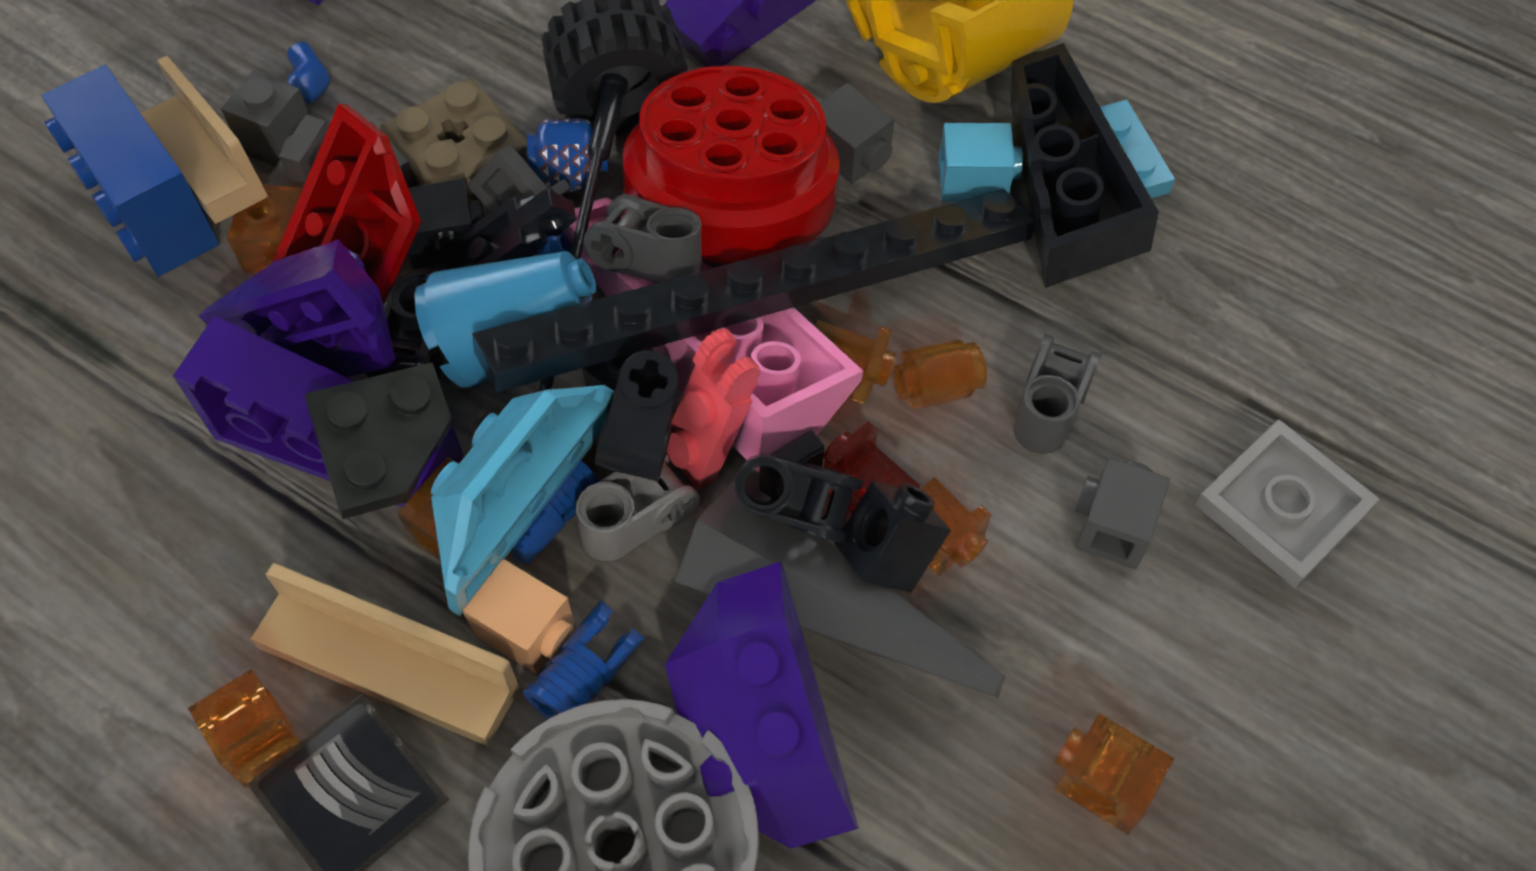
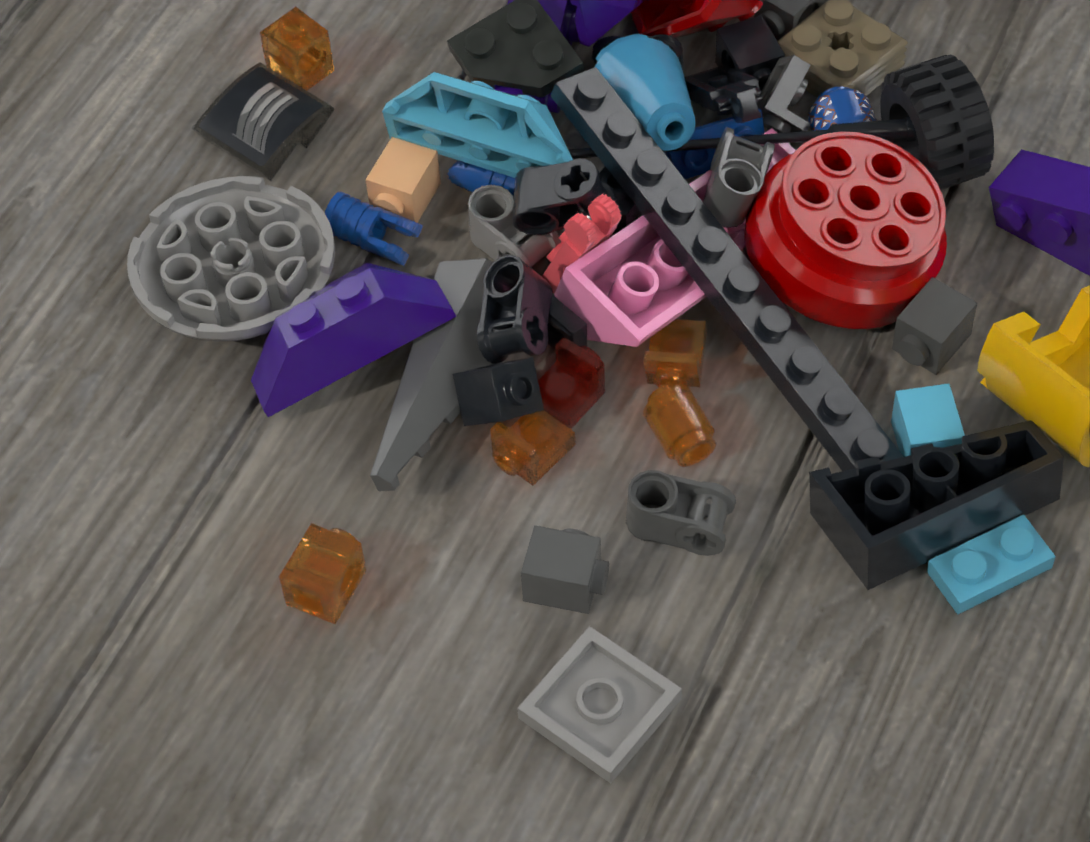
camera: 85 degrees right, 5 degrees down
(387, 656) = (360, 121): tan panel -> none

